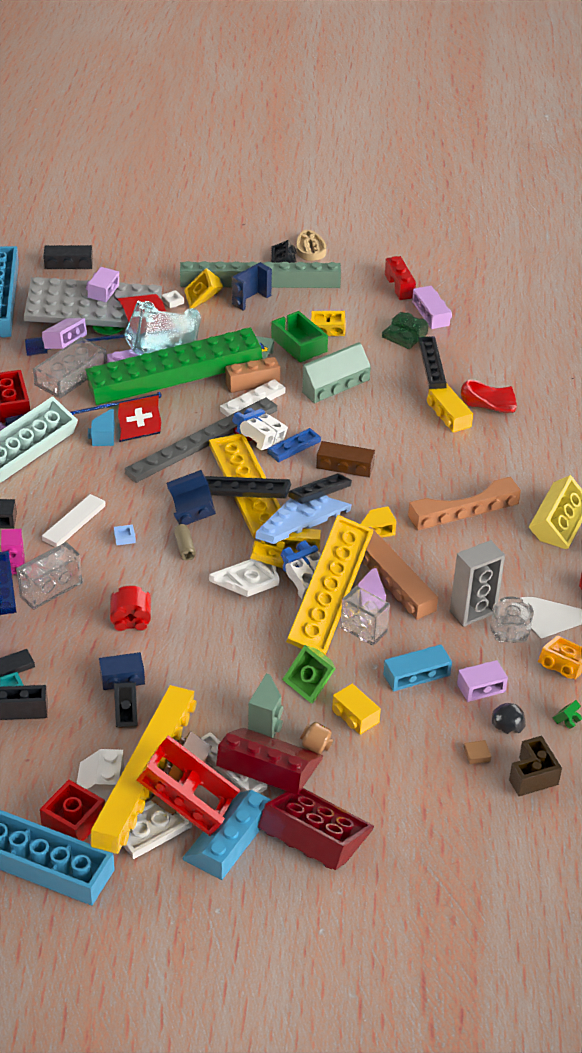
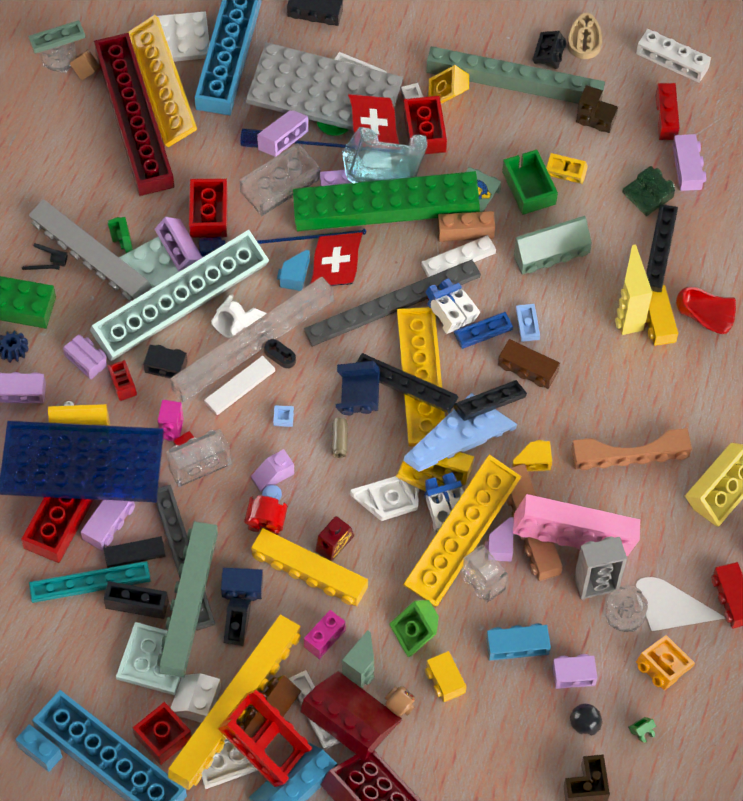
camera: 15 degrees right, 20 degrees up
(46, 752) = (141, 658): none -> light aqua plate
(53, 468) = (232, 318): none -> white helmet
(55, 665) = (177, 541): none -> dark grey tile
(69, 693) = (188, 600): none -> sand green brick
(77, 482) = (252, 339): none -> clear brick
(103, 284) = (337, 72): lavender brick -> none
(106, 491) = (279, 354): none -> black beam
(129, 572) = (273, 470): none -> lavender slope
(187, 645) = (309, 567): none -> yellow brick
(194, 299) = (425, 118): none -> red brick
(206, 610) = (336, 536): none -> dark red torso
(220, 696) = (324, 634): none -> dark pink brick
(250, 282) = (496, 91): dark blue panel -> none
(333, 431) = (527, 322): none -> light blue plate
(336, 286) = (594, 112): none -> dark brown brick
(390, 244) = (673, 55): none -> white brick
(422, 555) = (572, 524): none -> bright pink brick
(425, 386) = (635, 296): none -> light yellow slope
(477, 752) = (544, 749): medium nougat tile -> none

